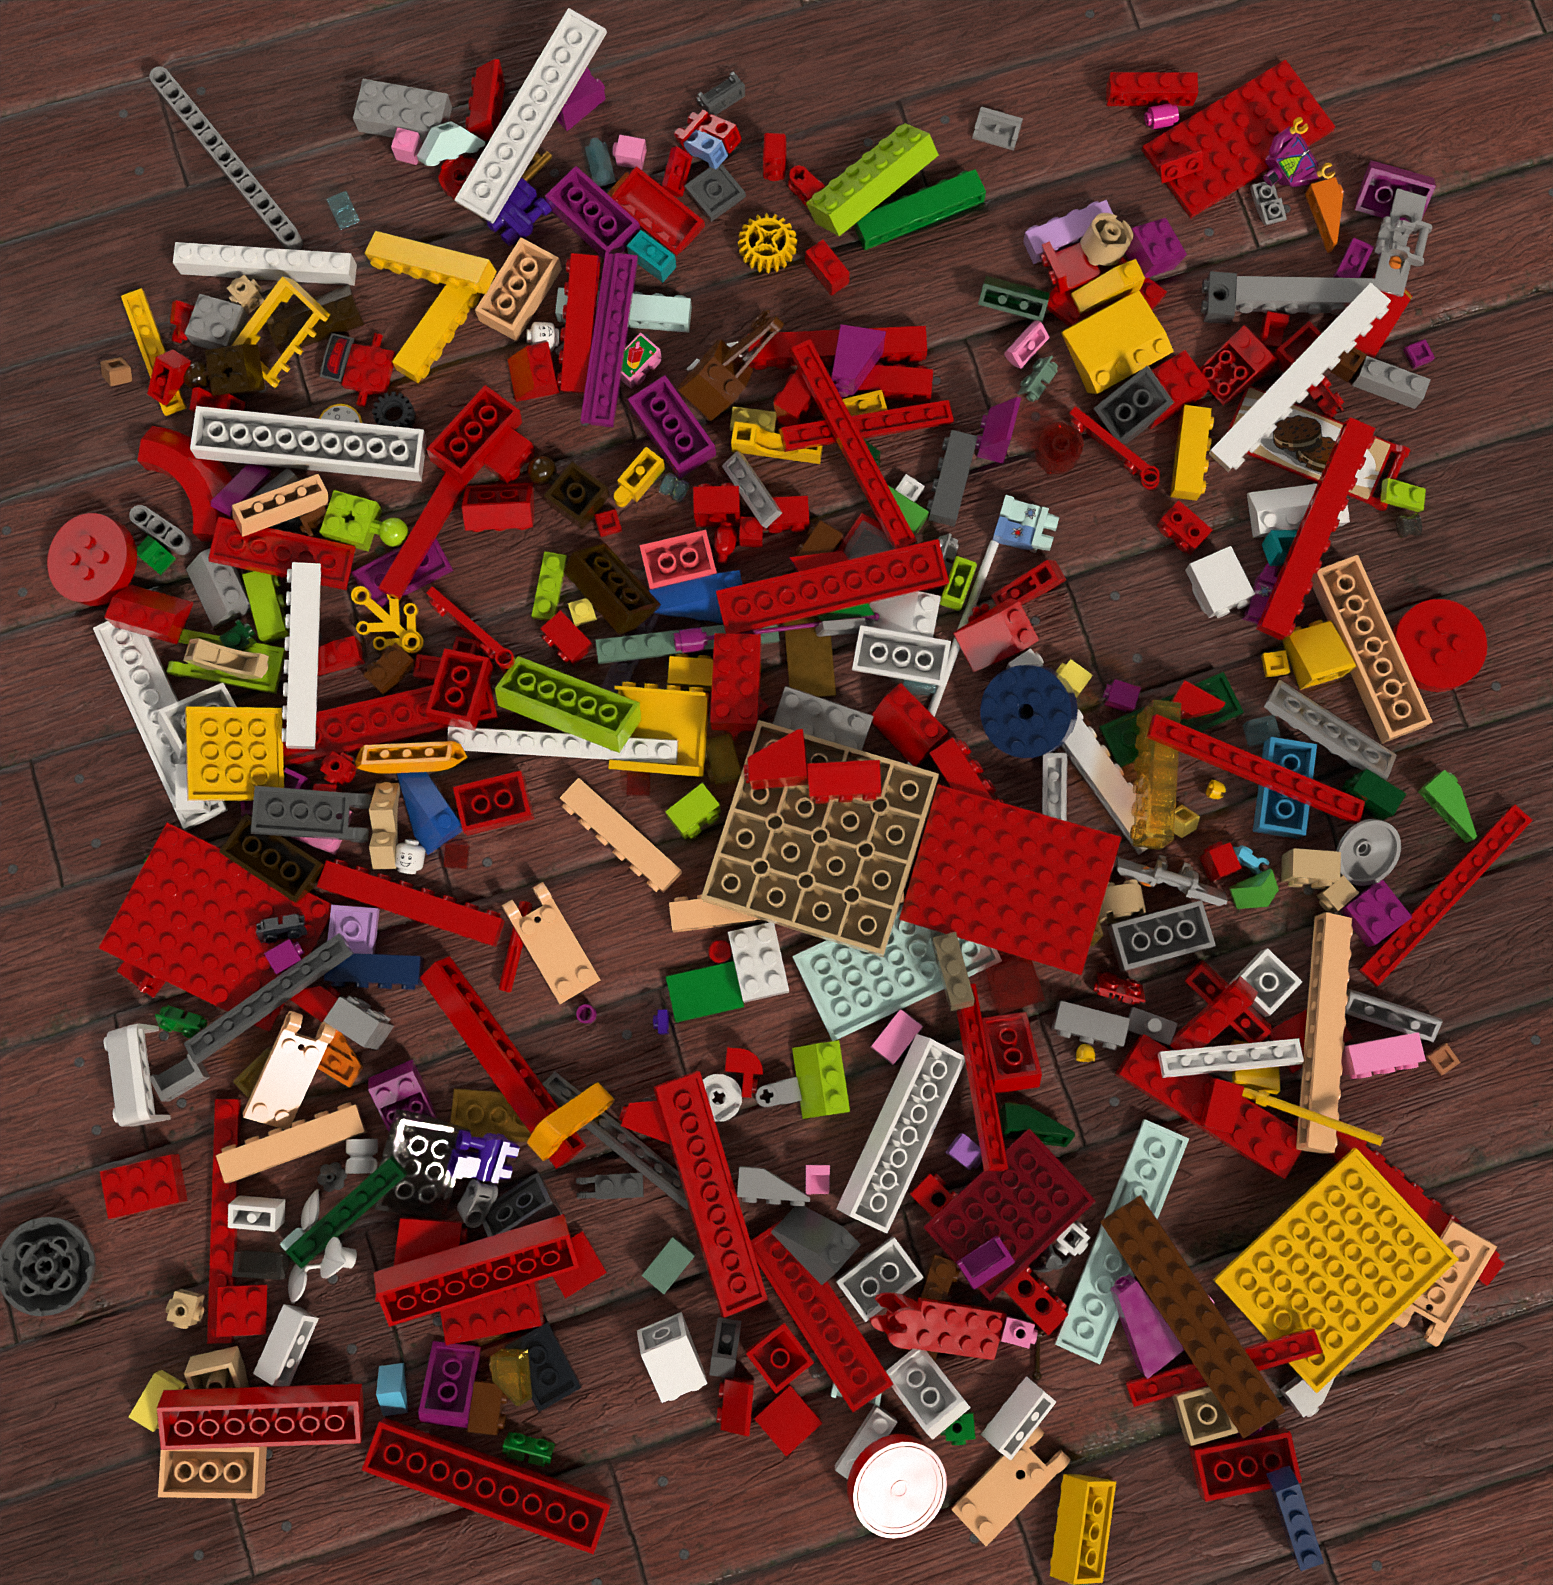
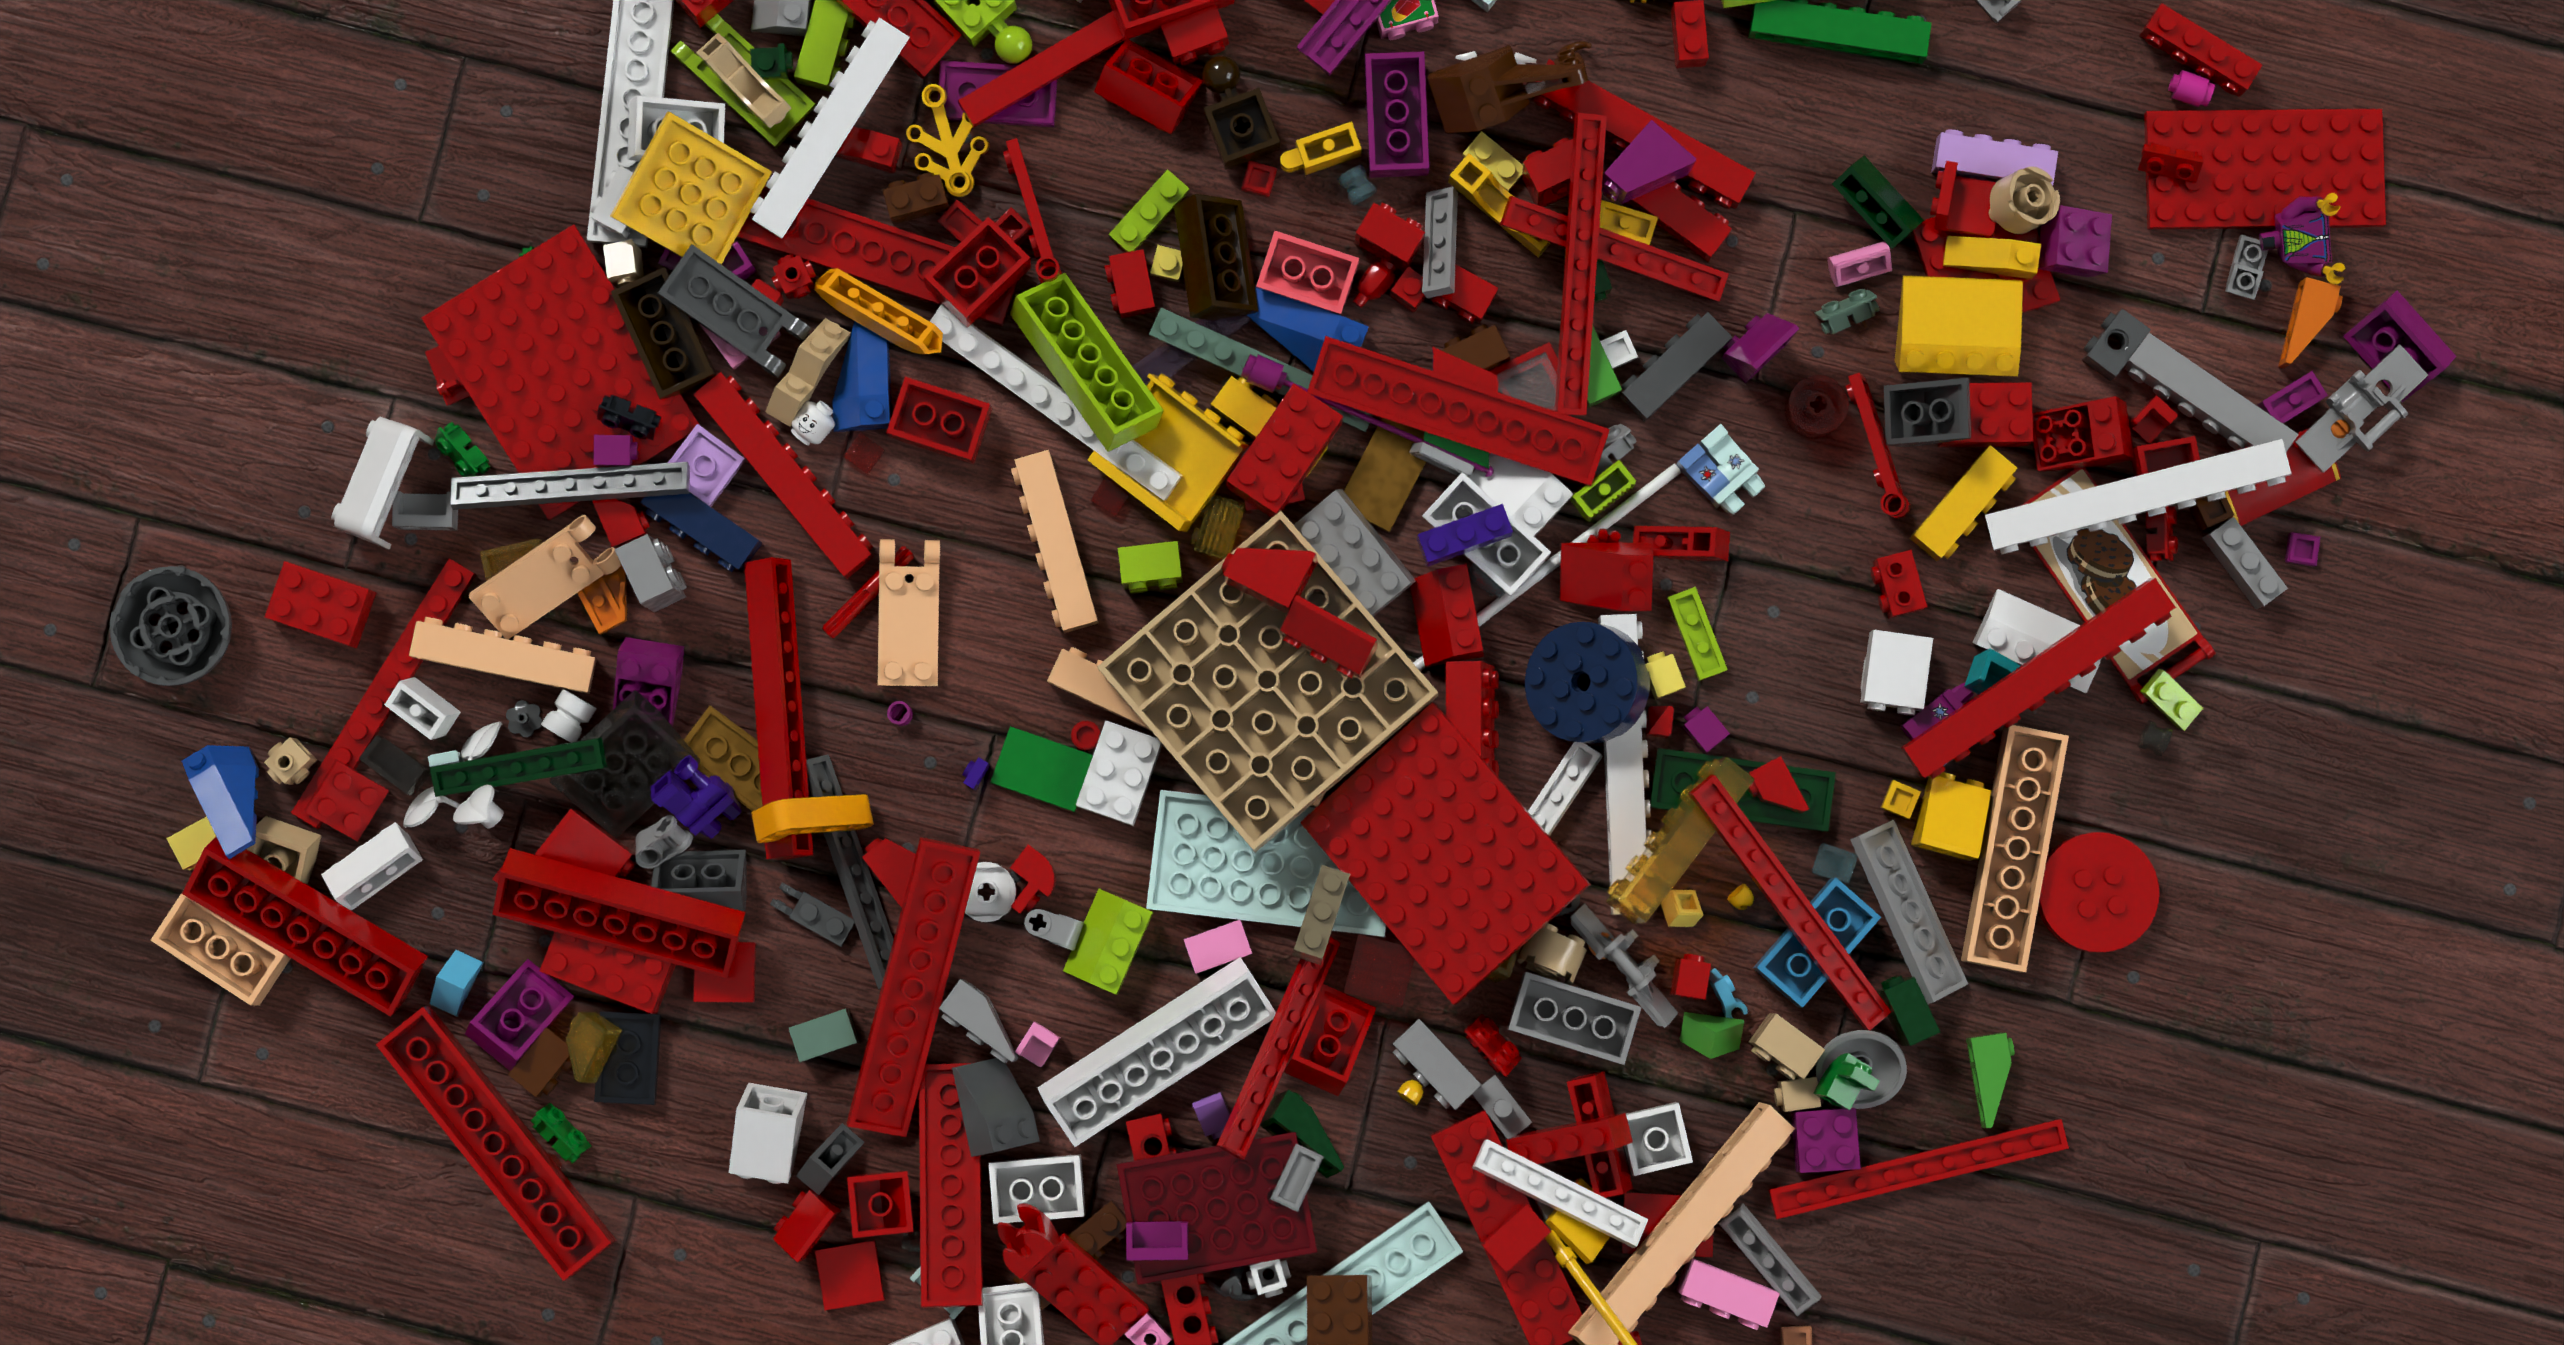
camera: 30 degrees right, 5 degrees up
(151, 1357) = (226, 790): none -> blue wedge
(216, 828) = (623, 262): none -> brick
(889, 663) = (1464, 535): none -> dark purple brick
(1050, 1158) = (1296, 1177): none -> light grey tile
(1076, 638) = (1697, 633): none -> lime plate
(1090, 708) = (1659, 721): none -> red slope
(1364, 865) = (1844, 1081): none -> green brick

